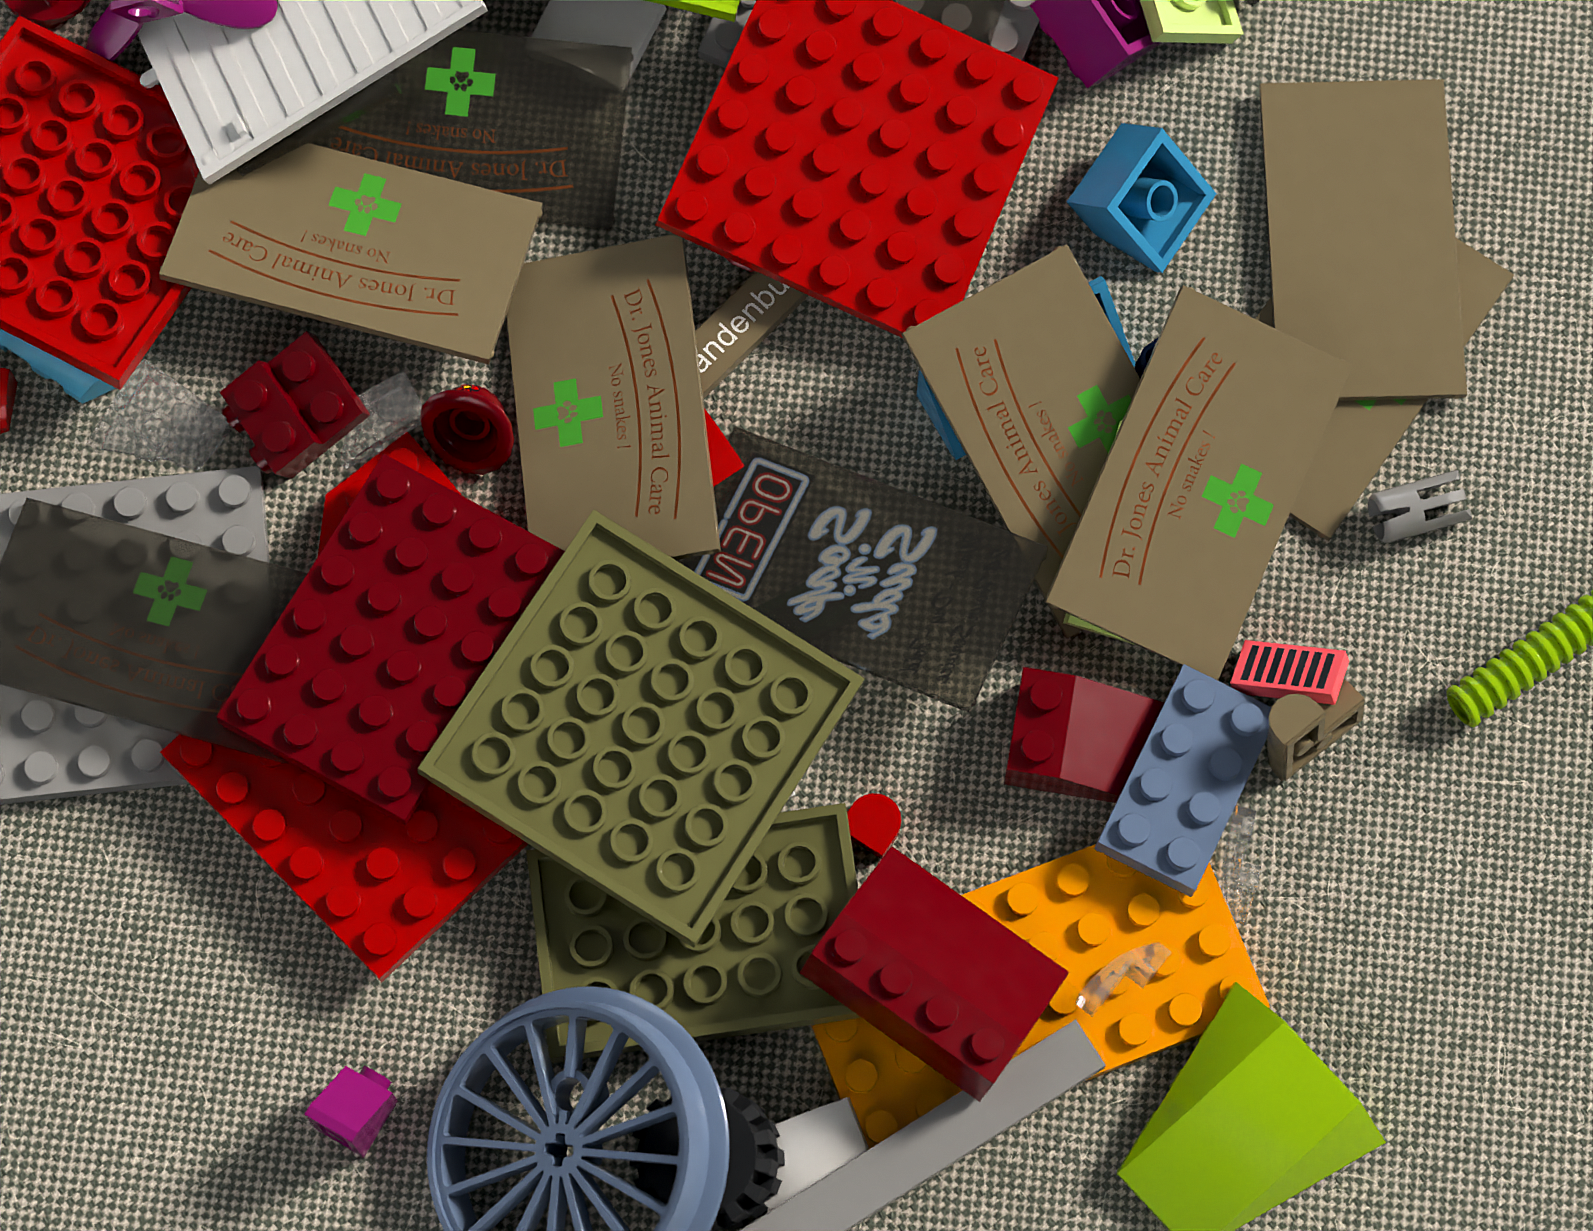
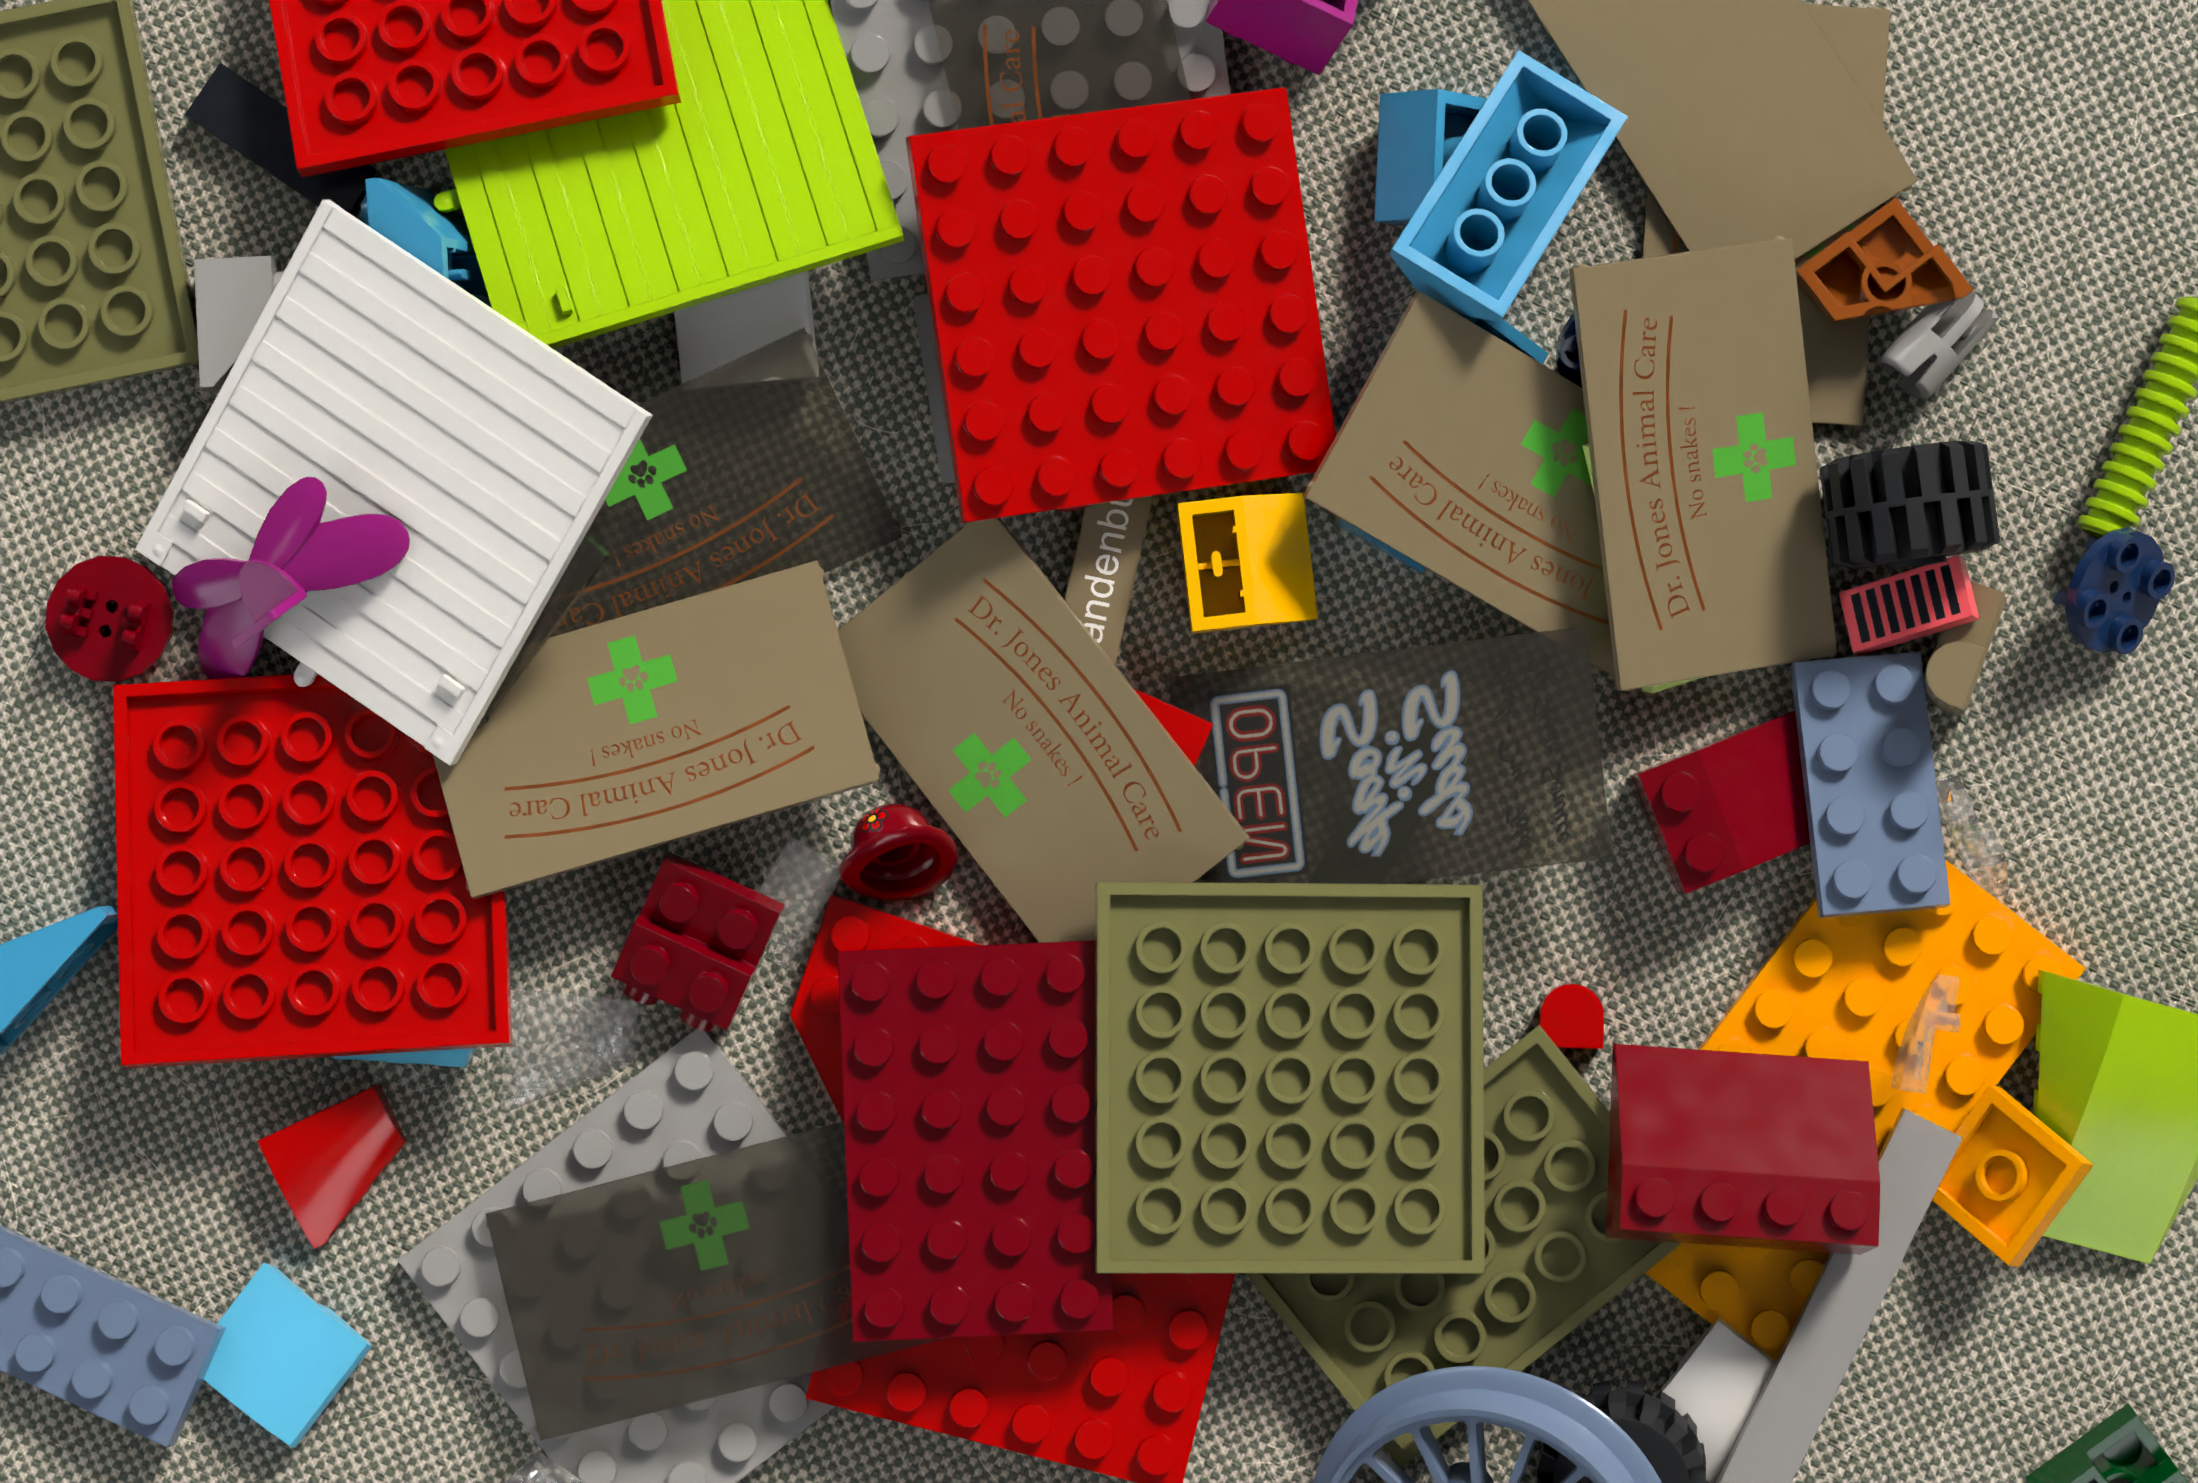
camera: 30 degrees left, 15 degrees up
(835, 372) = (1246, 562): none -> yellow slope
(1122, 1113) = (2008, 1176): none -> light orange plate
(1167, 218) = (1505, 190): none -> dark azure slope
(1330, 592) = (1909, 505): none -> black wheel
(1403, 431) = (1880, 269): none -> dark orange slope
(1469, 738) = (2116, 590): none -> dark blue plate

